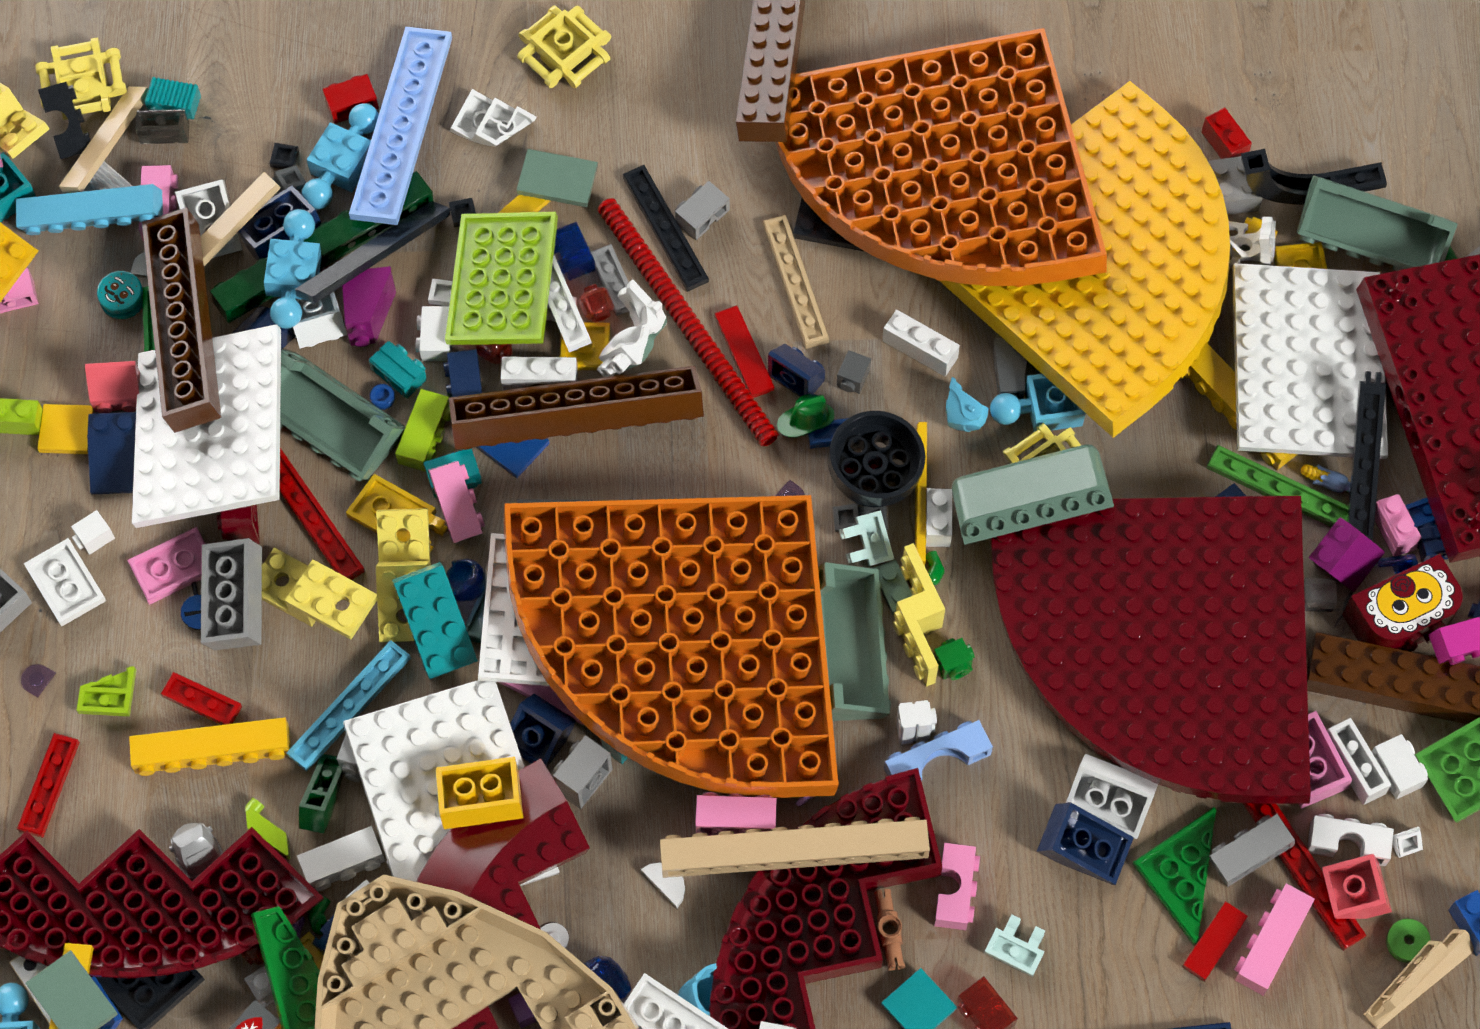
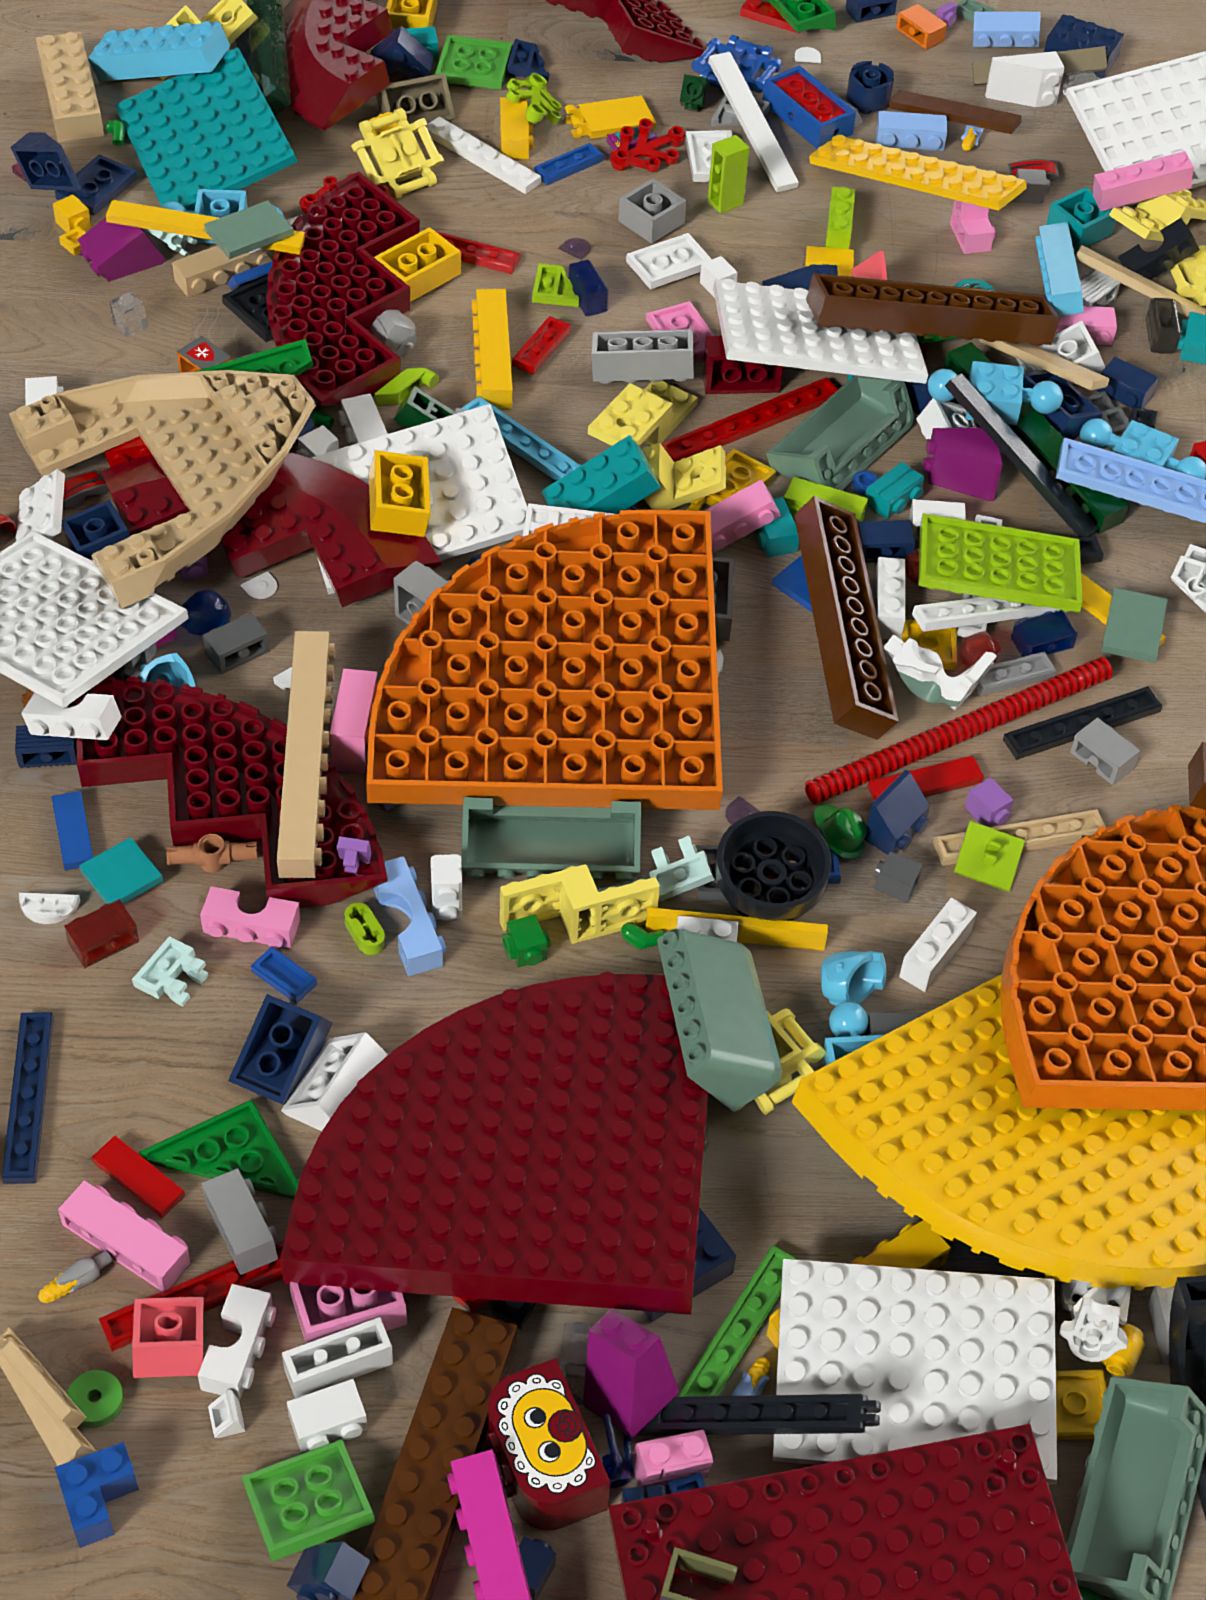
camera: 90 degrees right, 15 degrees down
(85, 827) = (423, 262): none -> yellow brick
(115, 657) = (589, 287): none -> clear blue brick
(241, 164) = (1129, 383): none -> dark blue brick
(637, 945) = (236, 643): none -> dark grey brick
(769, 301) = (989, 803): none -> medium lavender brick
(822, 303) = (989, 856): none -> lime piece
(905, 793) = (353, 852): none -> medium lavender tile
(954, 797) = (370, 925): none -> lime beam
(1005, 854) = (284, 975): none -> blue tile
(1312, 972) = (75, 1277): none -> light grey piece

